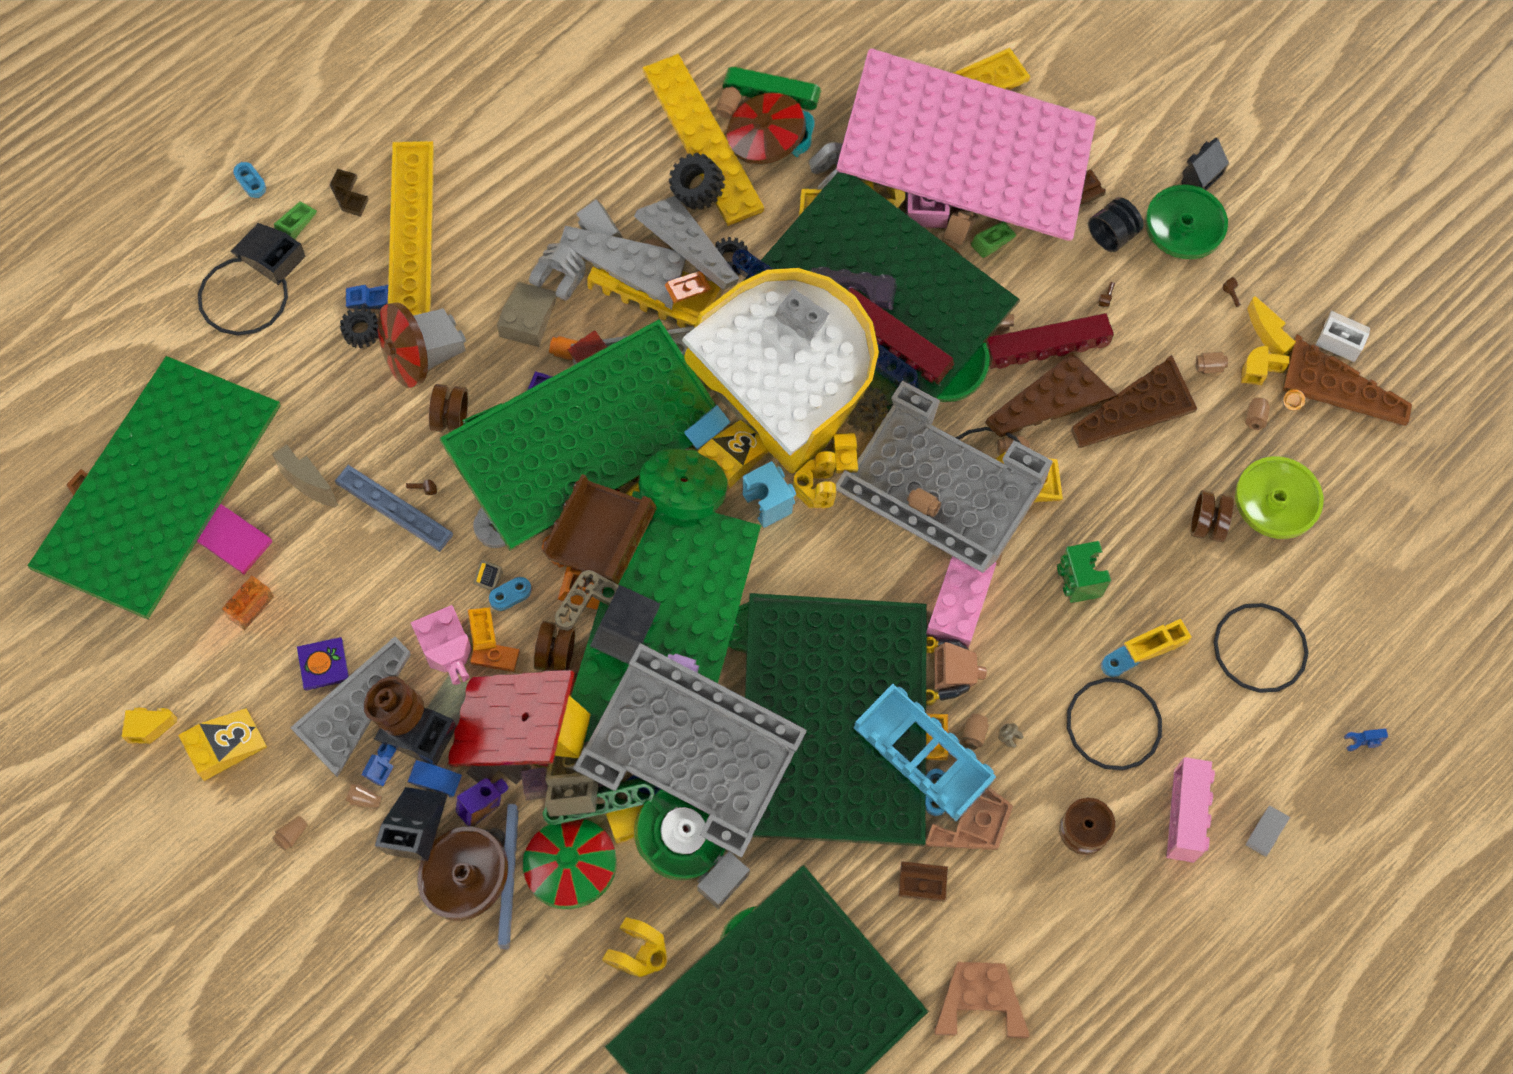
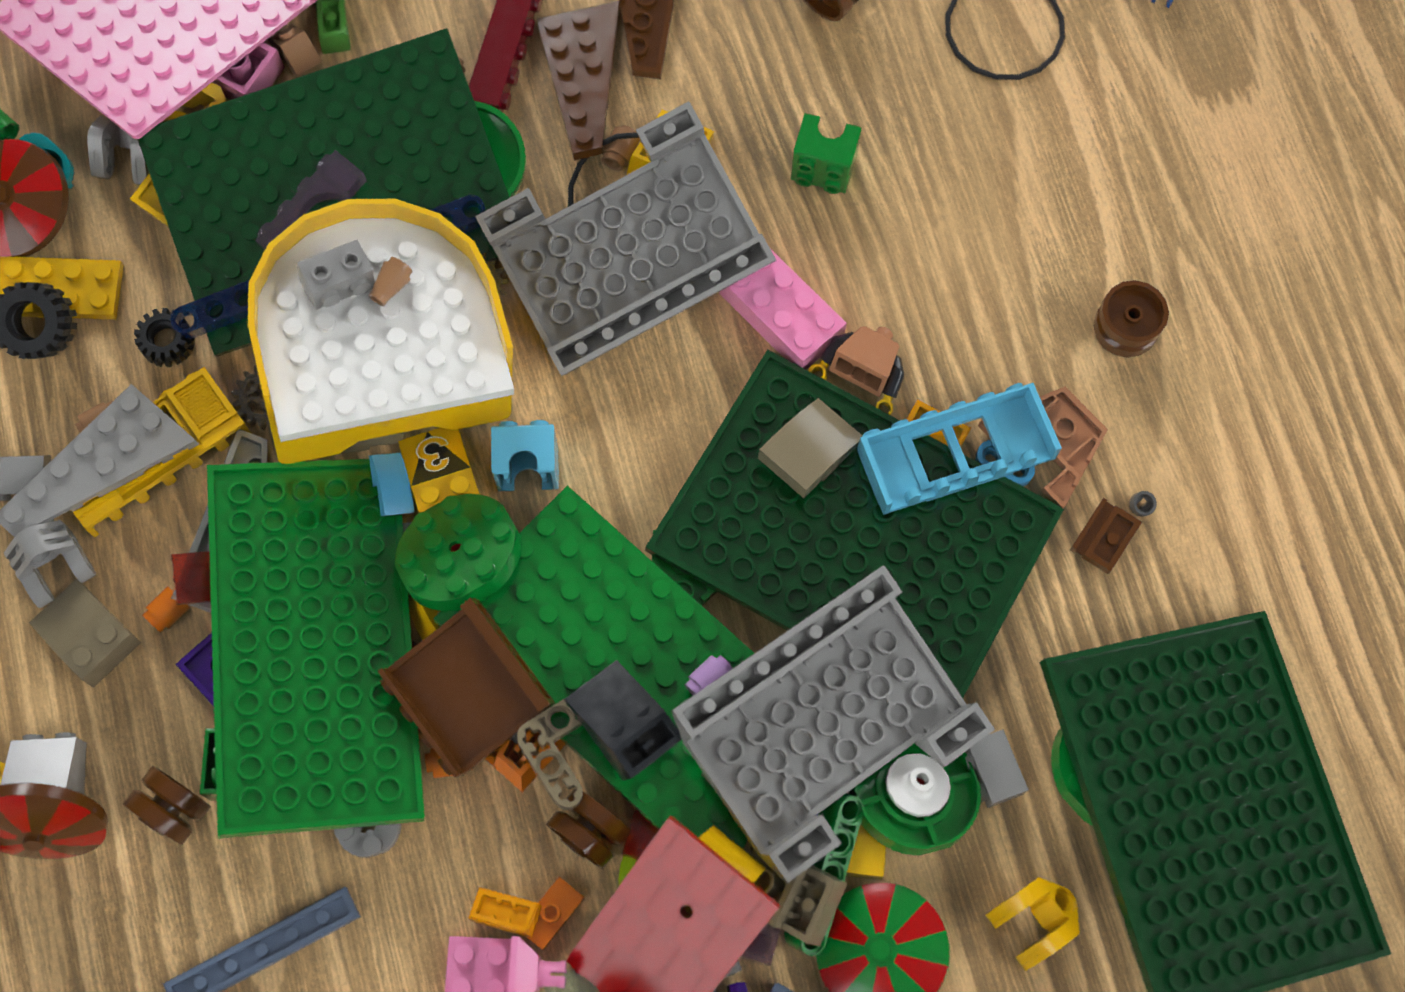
camera: 60 degrees left, 5 degrees up
(428, 486) = (259, 886): reddish brown hand -> none
(487, 575) = (433, 869): slope -> none
(511, 594) = (474, 850): dark azure plate -> none
(682, 233) = (88, 378): light grey wing -> none
(687, 286) = (183, 406): orange plate -> none
(816, 346) = (390, 280): none -> medium nougat cone
(825, 492) = (562, 391): yellow piece -> none
(844, 448) = (527, 338): yellow brick -> none
(872, 658) = (809, 447): none -> dark tan slope
(906, 343) = (434, 182): dark red brick -> none
(924, 502) = (645, 279): medium nougat brick -> none
(956, 900) = (1147, 508): none -> dark grey hinge
(975, 731) = (953, 380): medium nougat brick -> none
(981, 988) = (1260, 539): nougat wing -> none
(1007, 732) = (973, 344): dark tan plate -> none
(1112, 767) = (1009, 279): black piece -> none
(1123, 660) = (945, 173): dark azure plate -> none
(1158, 641) = (948, 123): yellow slope -> none
(1190, 810) = (1166, 200): bright pink brick -> none
(1267, 831) = (1224, 136): light grey slope -> none

